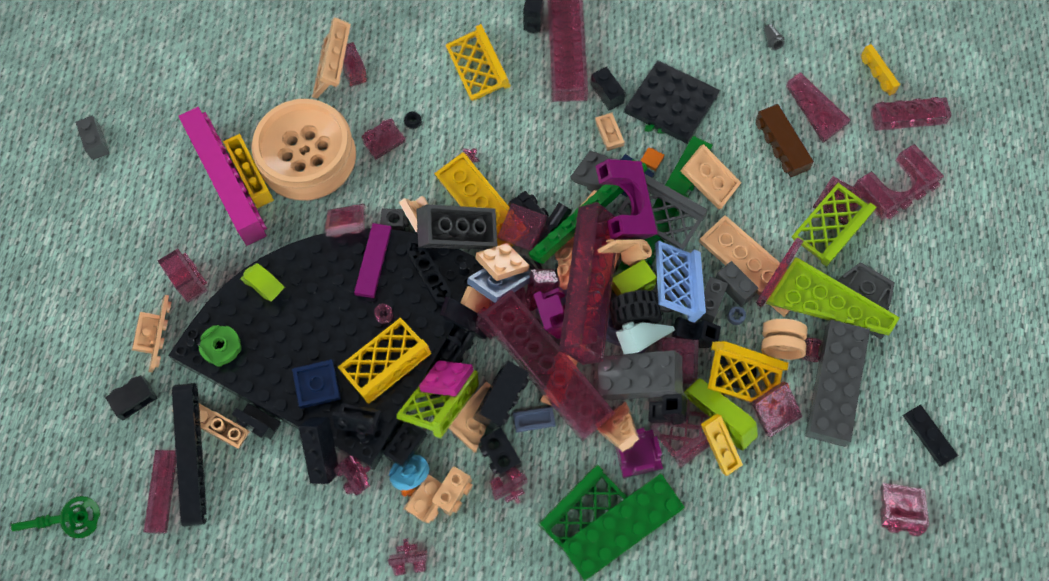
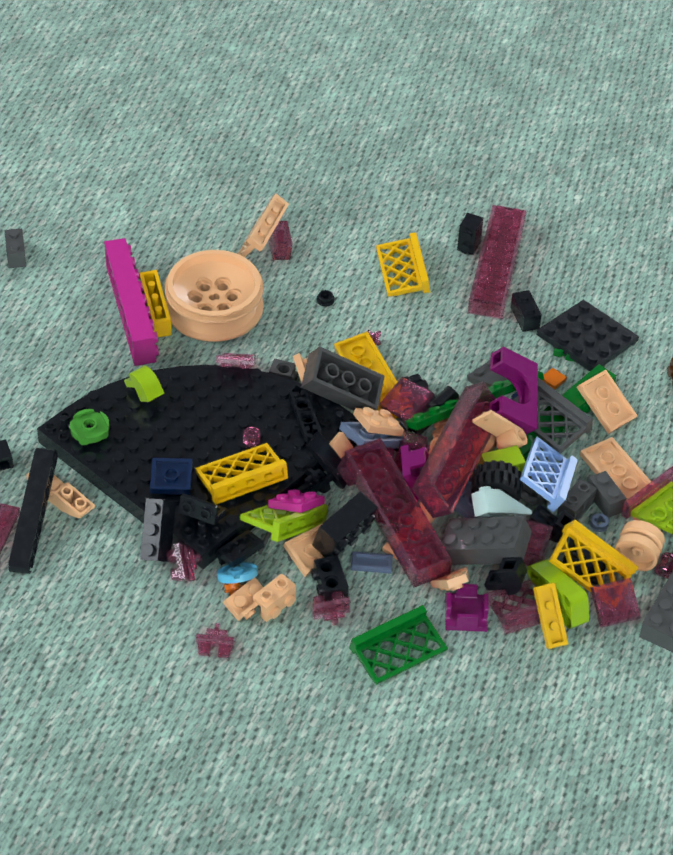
camera: 10 degrees right, 20 degrees down
(149, 332) = (22, 411): light nougat bracket -> none
(183, 275) = (70, 370): clear pink brick -> none
(257, 420) = (103, 502): black bracket -> none
(373, 260) = (254, 393): magenta tile -> none
(382, 138) = (291, 306): clear pink bracket -> none
(609, 131) = (517, 342): light nougat plate -> none
(622, 527) = (432, 665): green plate -> none

